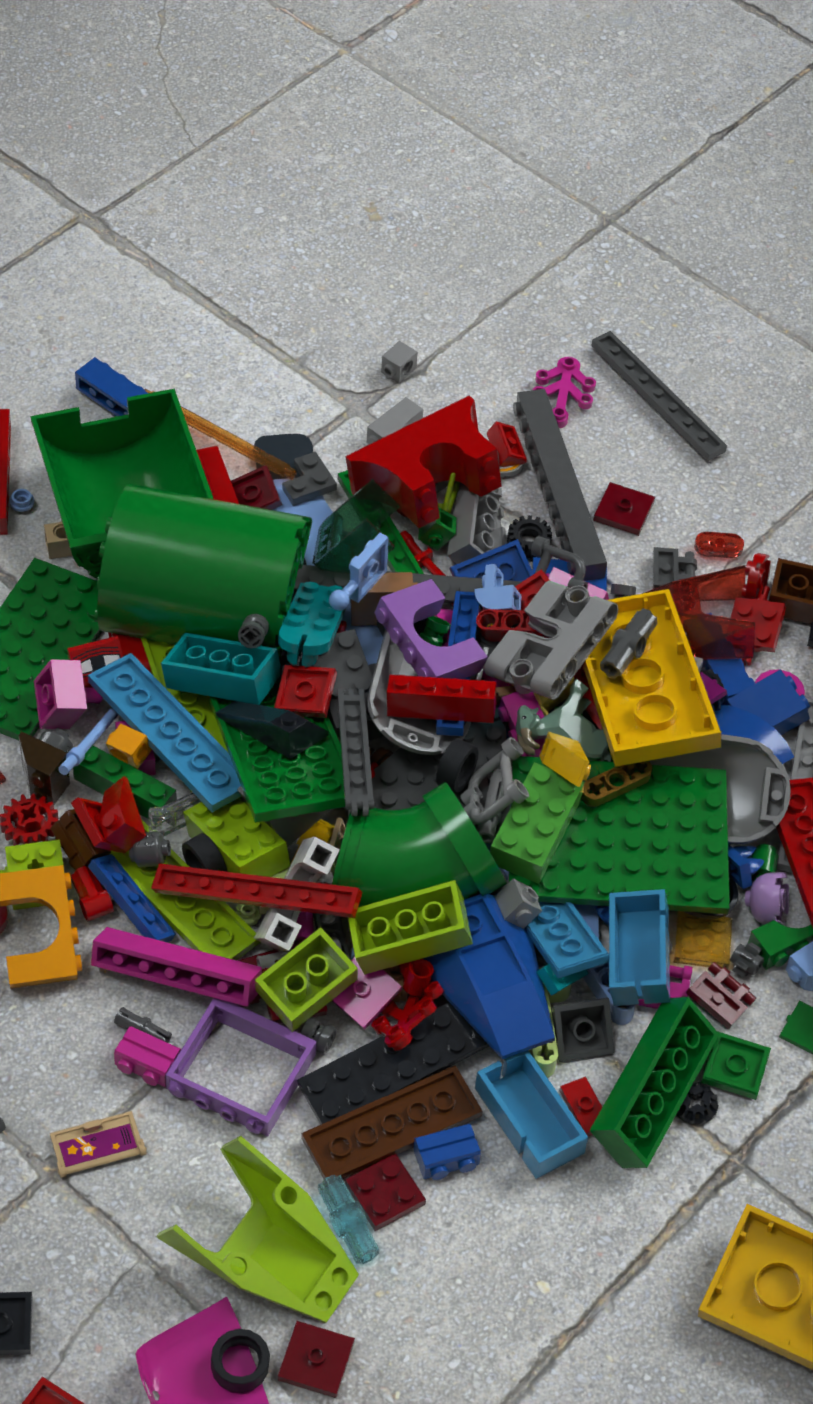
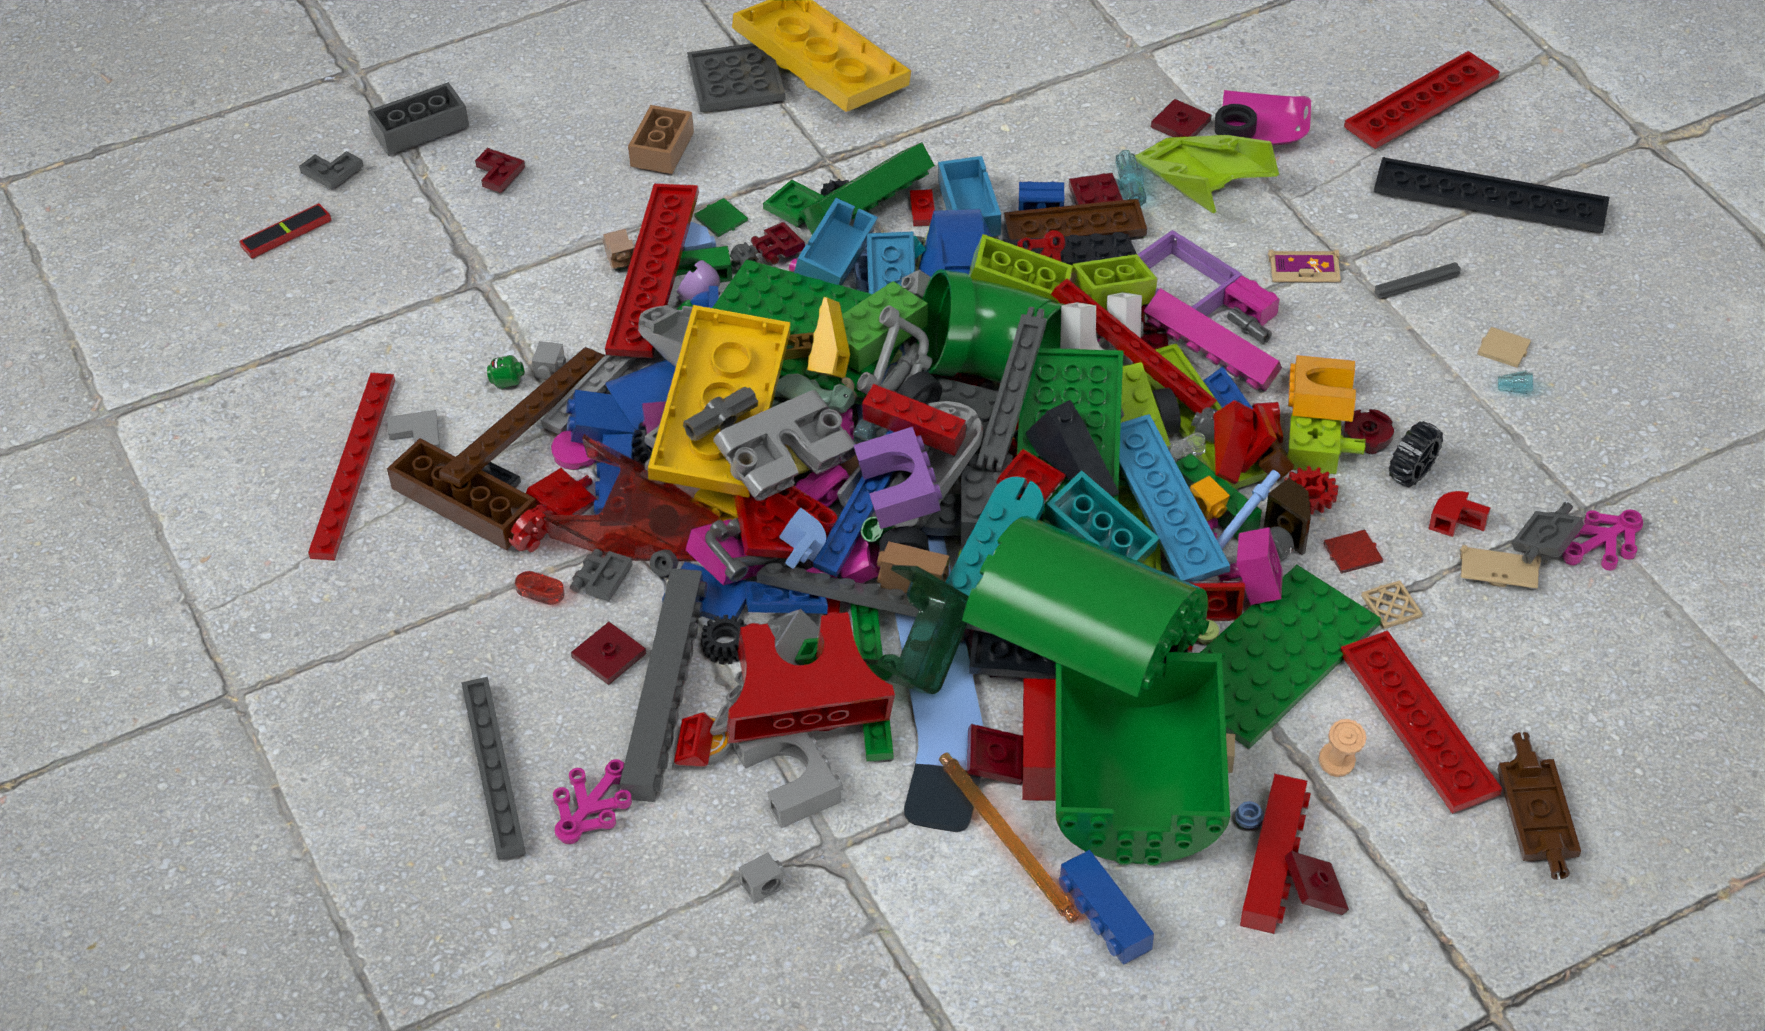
camera: 155 degrees left, 5 degrees down
(258, 628) = (1065, 517): dark grey wheel -> none
(313, 480) = (922, 747): dark grey plate -> none
(364, 573) = (936, 537): light blue plate -> none

